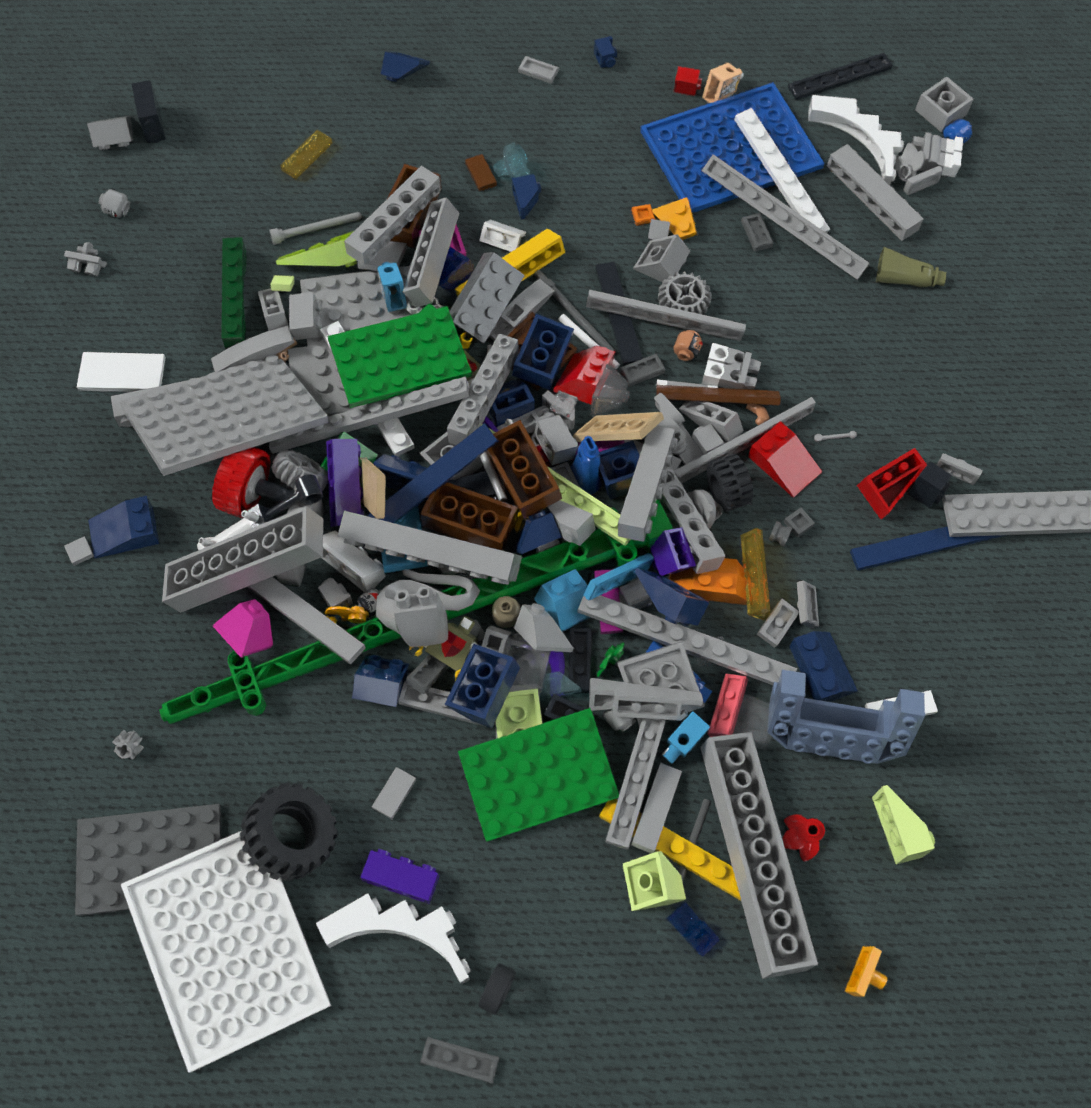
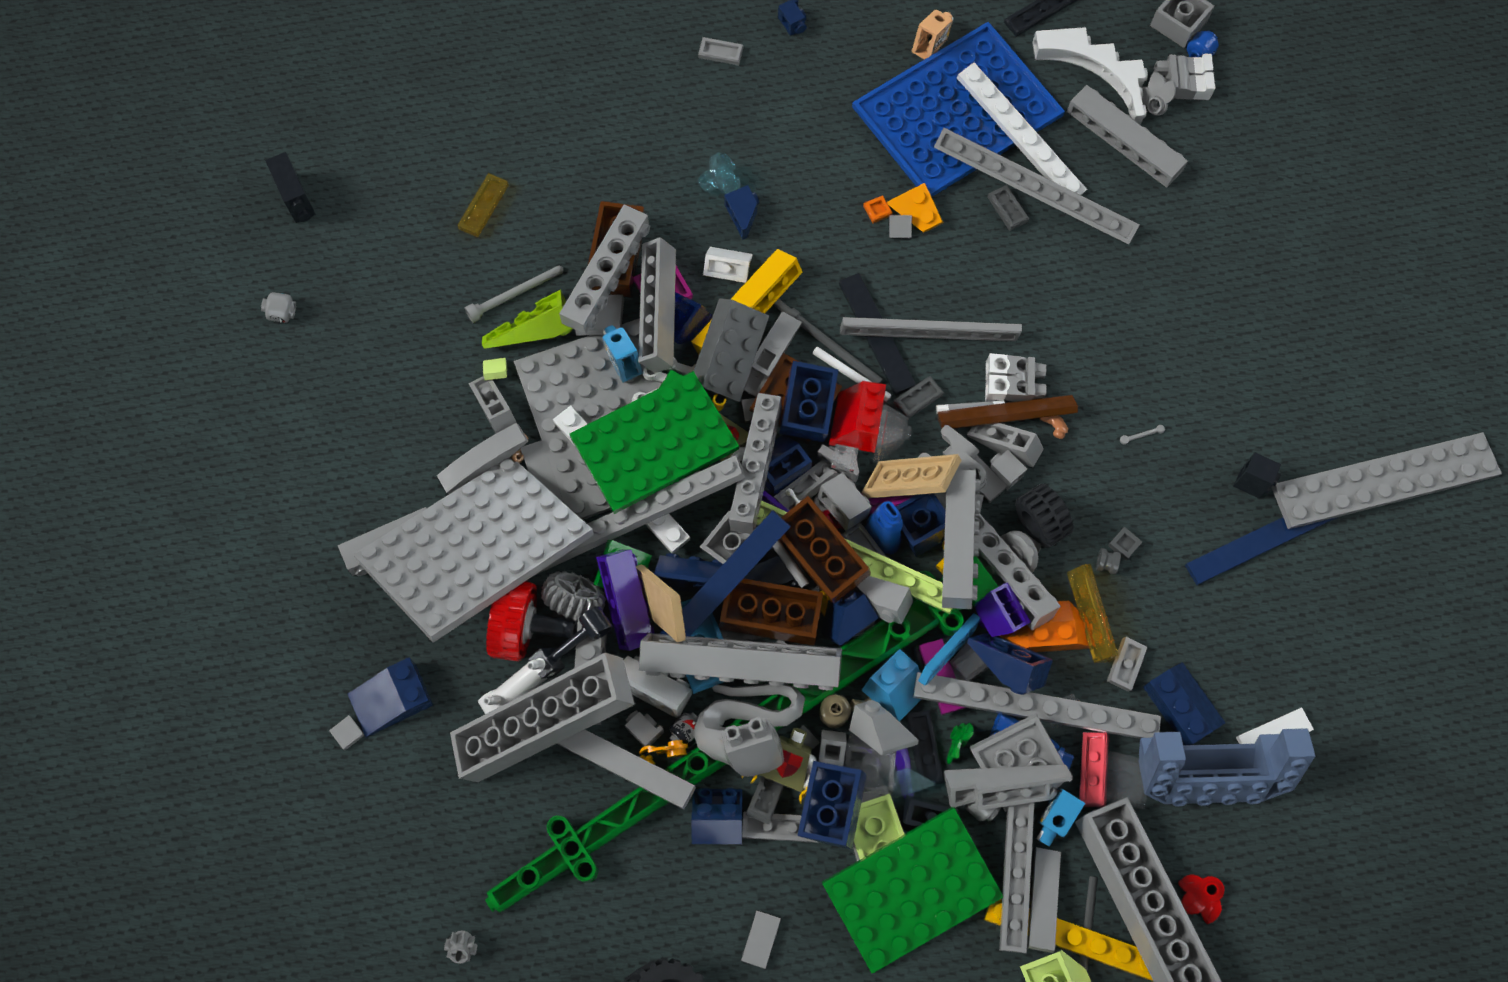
camera: 10 degrees left, 5 degrees up
(93, 262) = (252, 385): light grey hips -> none
(111, 132) = (251, 218): light grey slope -> none
(120, 371) = (338, 510): white tile -> none
(233, 291) = (443, 392): dark green arch -> none
(246, 628) = (558, 789): dark pink slope -> none
(304, 316) = (532, 407): light grey brick -> none
(400, 65) = (564, 73): dark blue slope -> none
(480, 172) = (685, 191): reddish brown tile -> none
(662, 257) = (911, 259): light grey slope -> none
(680, 287) = (930, 291): light grey gear -> none
(687, 81) = (892, 36): red brick -> none
(688, 345) = (962, 359): nougat head -> none
(745, 440) = (1049, 459): light grey tile -> none
(785, 459) = (1095, 474): slope -> none
(807, 604) = (1153, 636): light grey plate -> none
(891, 481) = (1214, 480): red wedge -> none
(900, 269) = (1177, 224): olive piece -> none
(903, 828) = (1306, 872): yellowish green slope -> none
(923, 180) = (1176, 112): light grey tile -> none
(959, 469) = (1282, 448): light grey plate -> none

